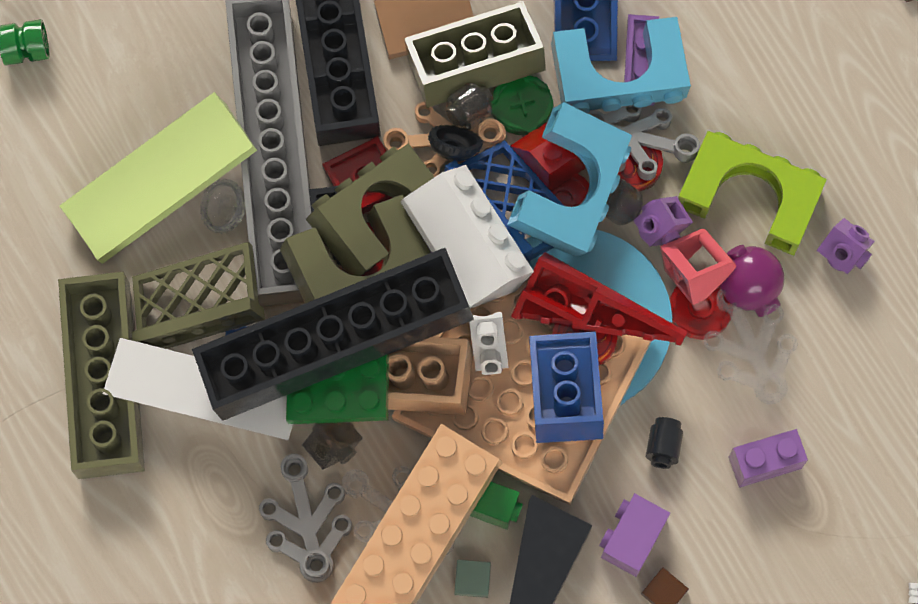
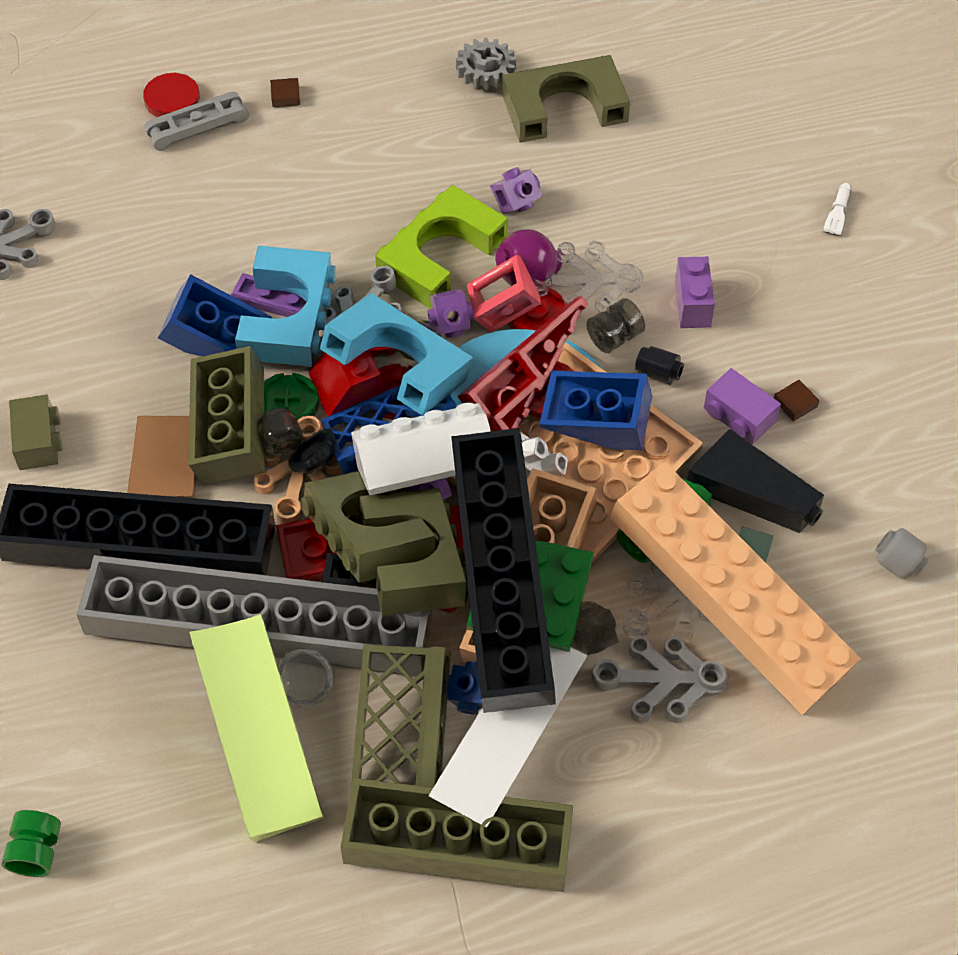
camera: 75 degrees left, 15 degrees down
(697, 387) = (616, 325): none -> clear smoke wheel

